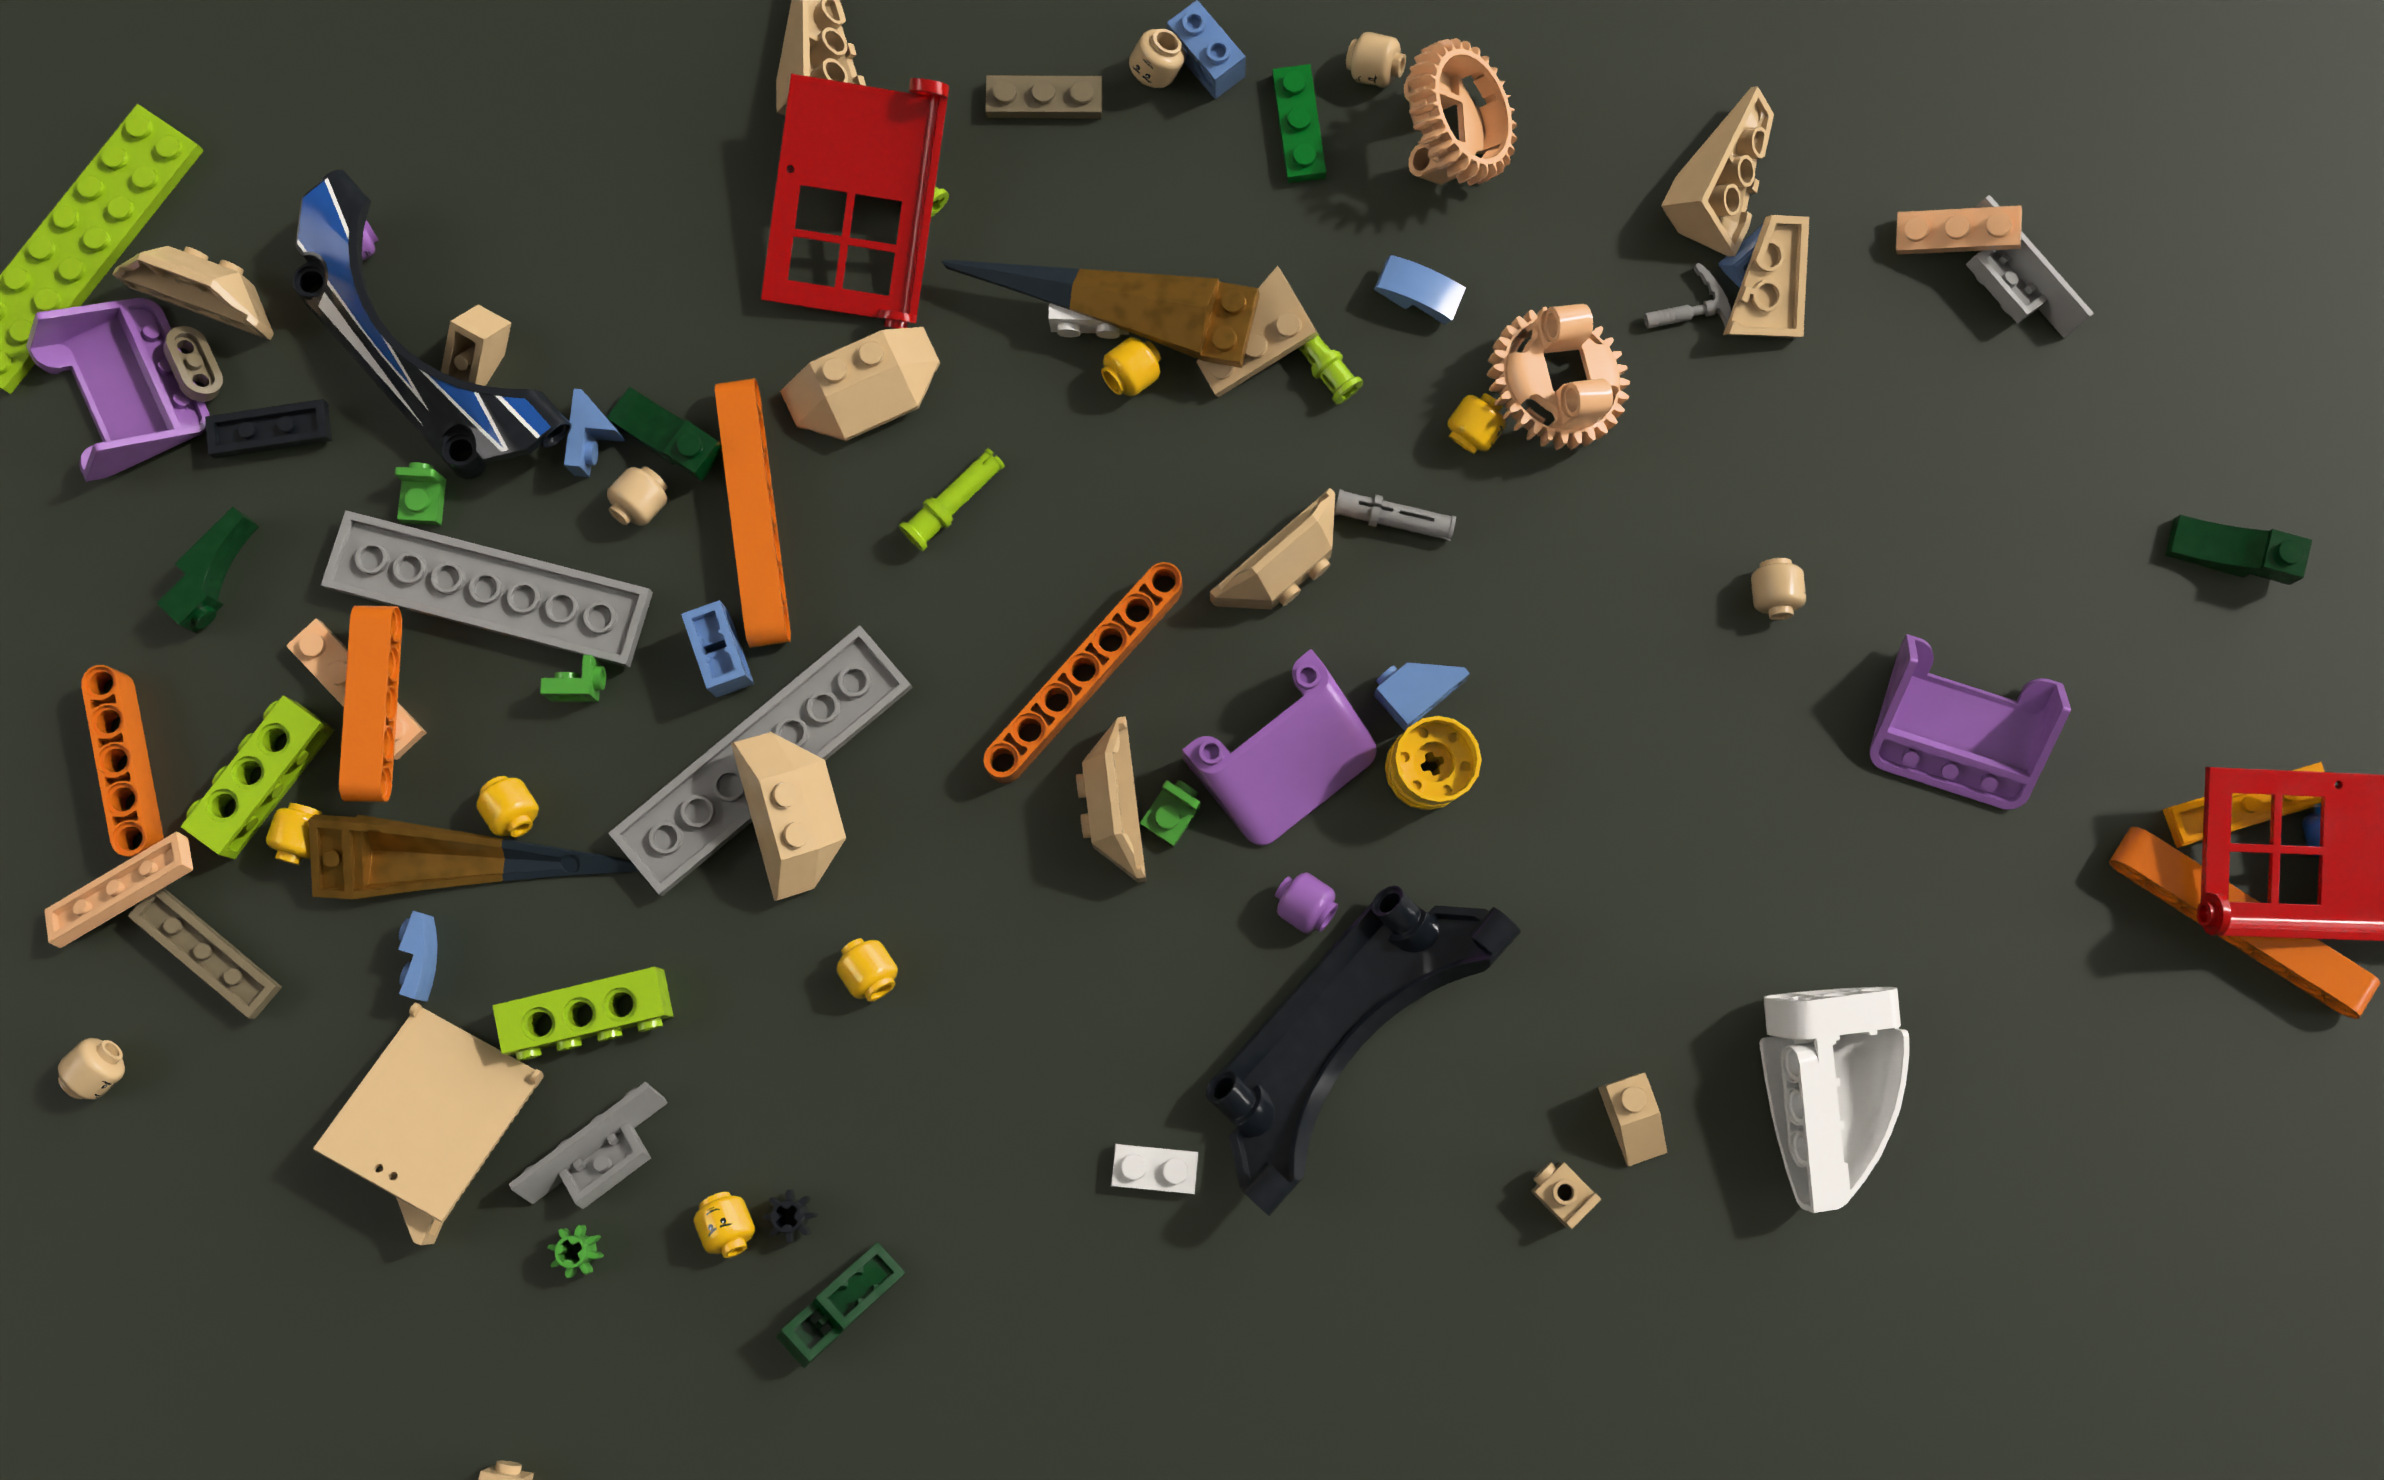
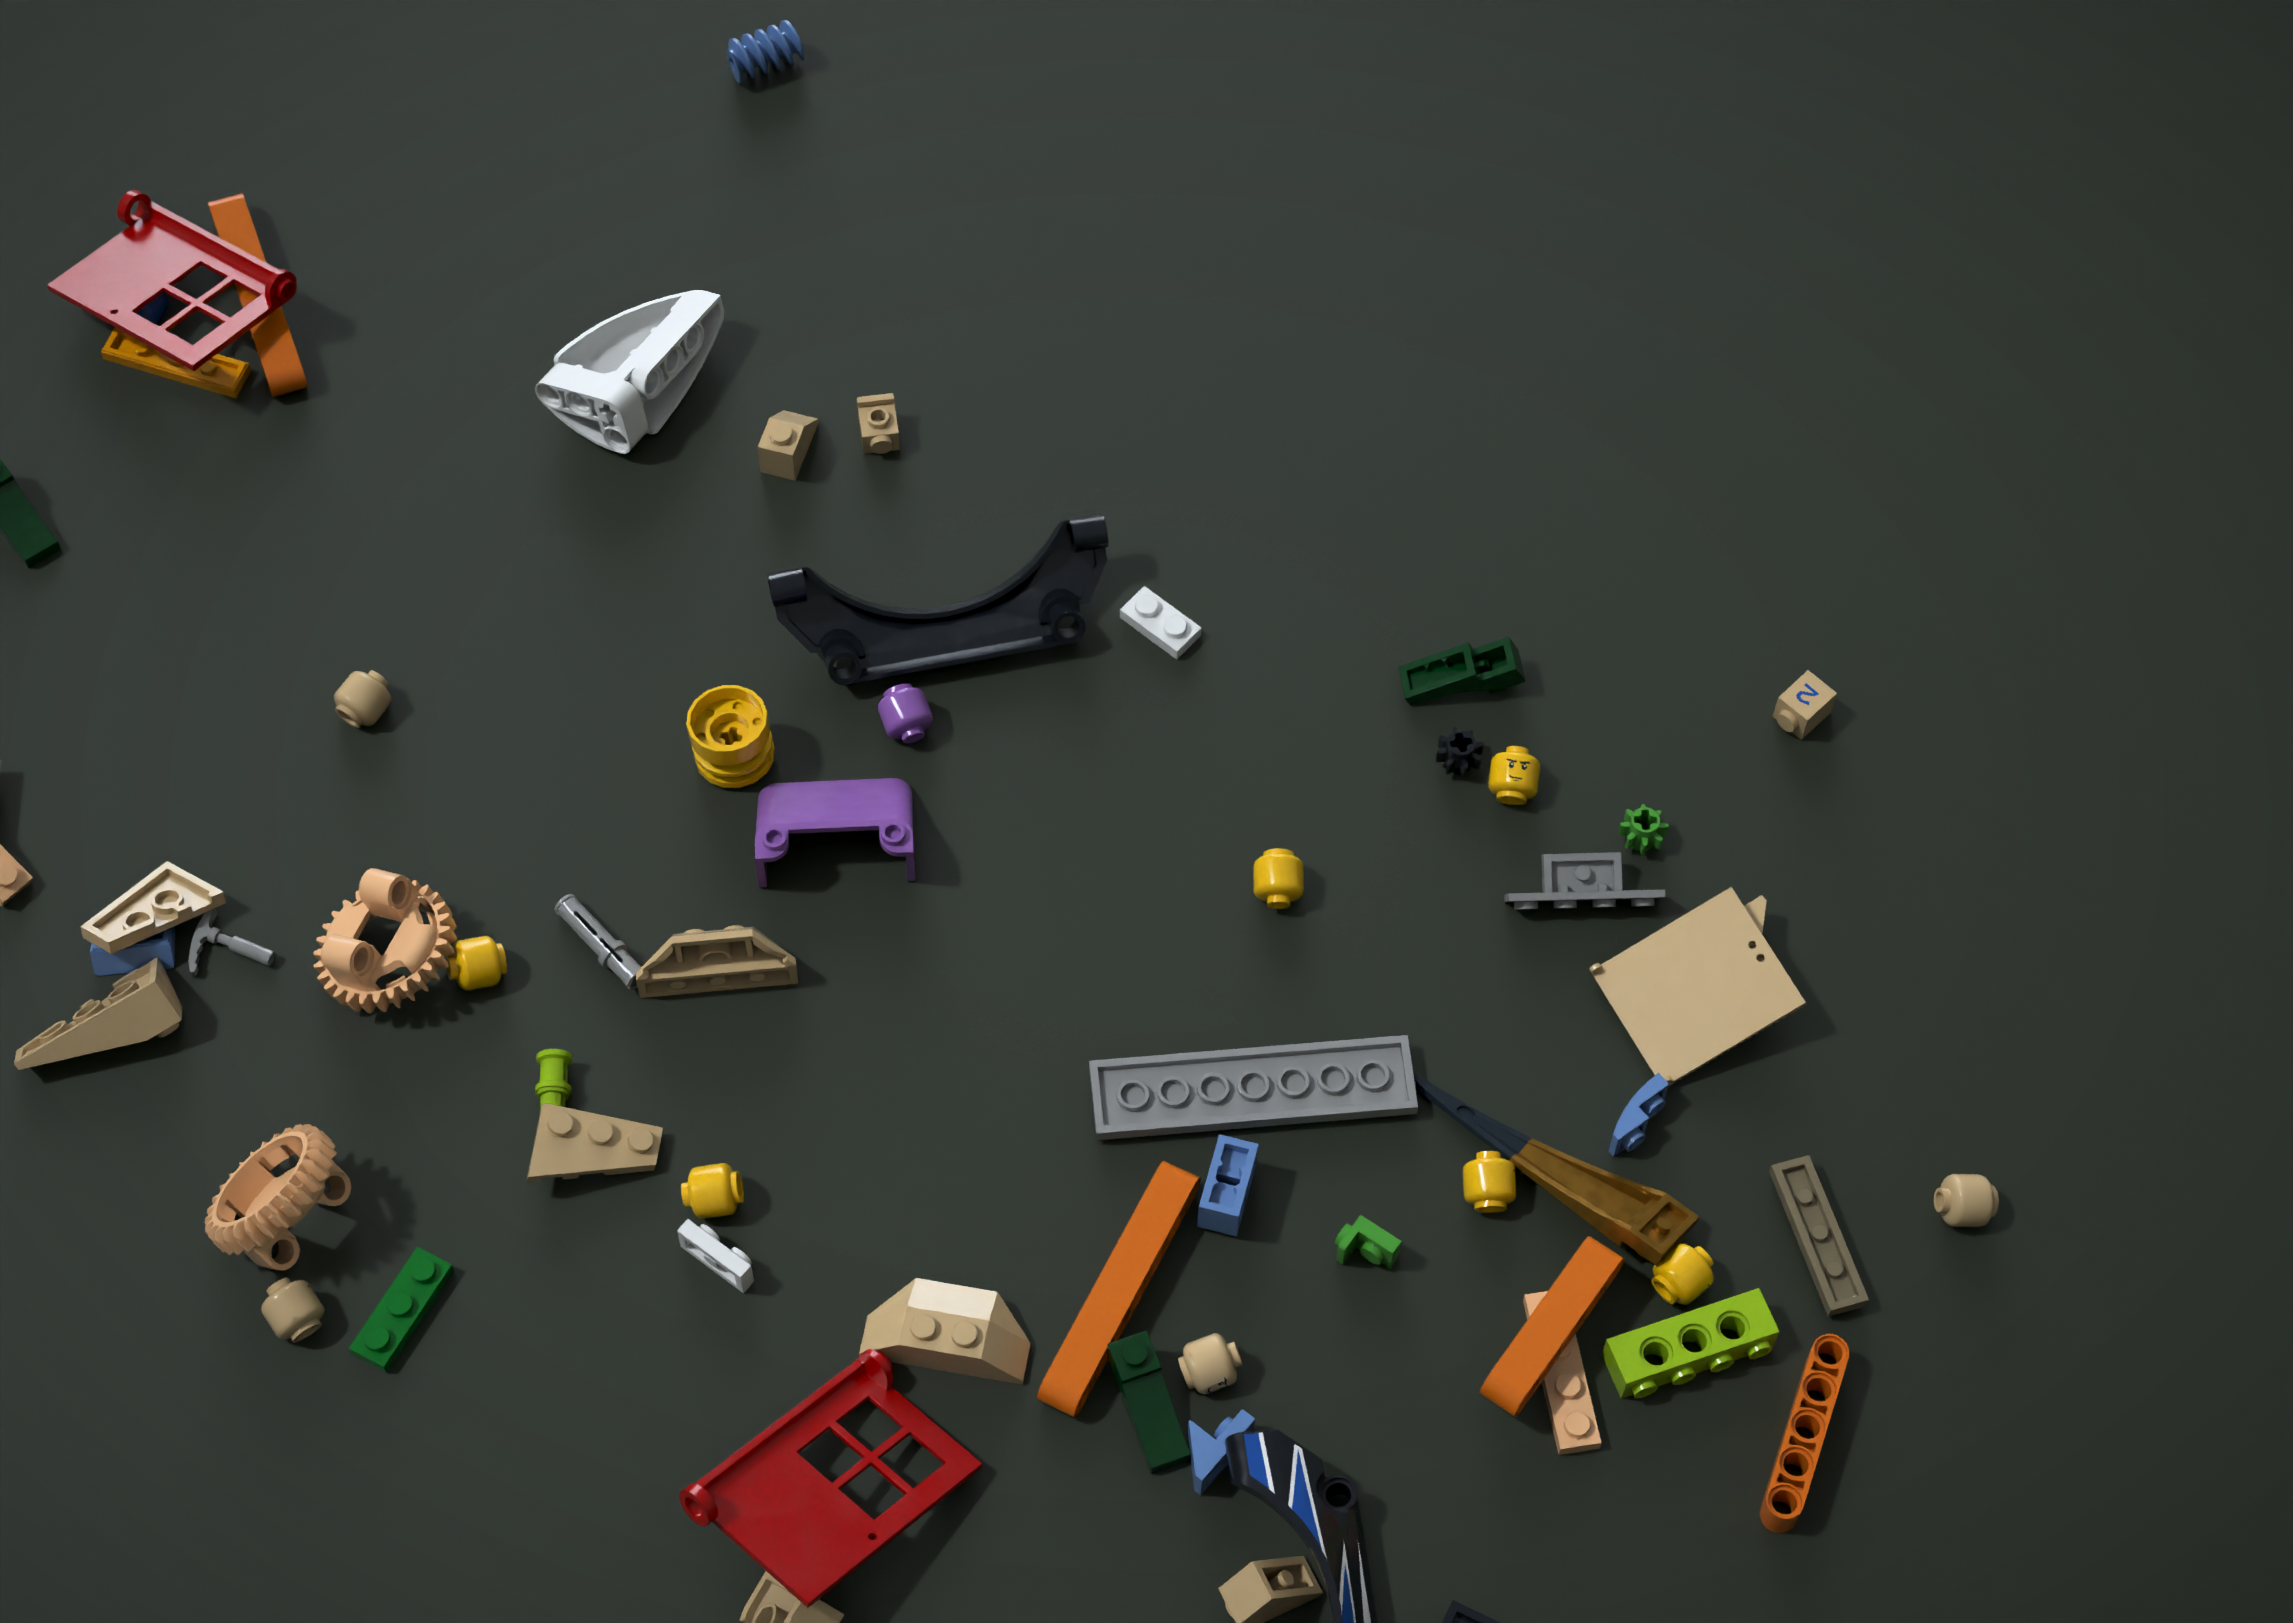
camera: 150 degrees left, 20 degrees down
(118, 889) = (1864, 1320): light nougat plate -> none
(195, 596) = (1661, 1534): dark green slope -> none
(420, 494) = (1400, 1498): bright green bracket -> none
(487, 588) = (1395, 1377): light grey plate -> none
(518, 1018) = (1536, 1007): lime brick -> none
(790, 811) = (1256, 1025): tan wedge -> none
(939, 511) = (964, 1185): lime pin -> none
(1044, 97) = (596, 1485): dark tan plate -> none
(1087, 653) = (929, 996): orange beam -> none
(1112, 801) = (993, 878): tan wedge -> none
(1157, 58) = (474, 1433): tan head -> none
(1172, 812) = (955, 844): bright green bracket -> none
(1180, 312) = (638, 1190): pearl gold plate -> none
(1208, 49) = (426, 1417): medium blue brick -> none
(1416, 689) = (693, 802): medium blue slope -> none
(1420, 286) = (426, 1097): medium blue slope -> none
(1965, 735) = (319, 520): medium lavender windscreen -> none

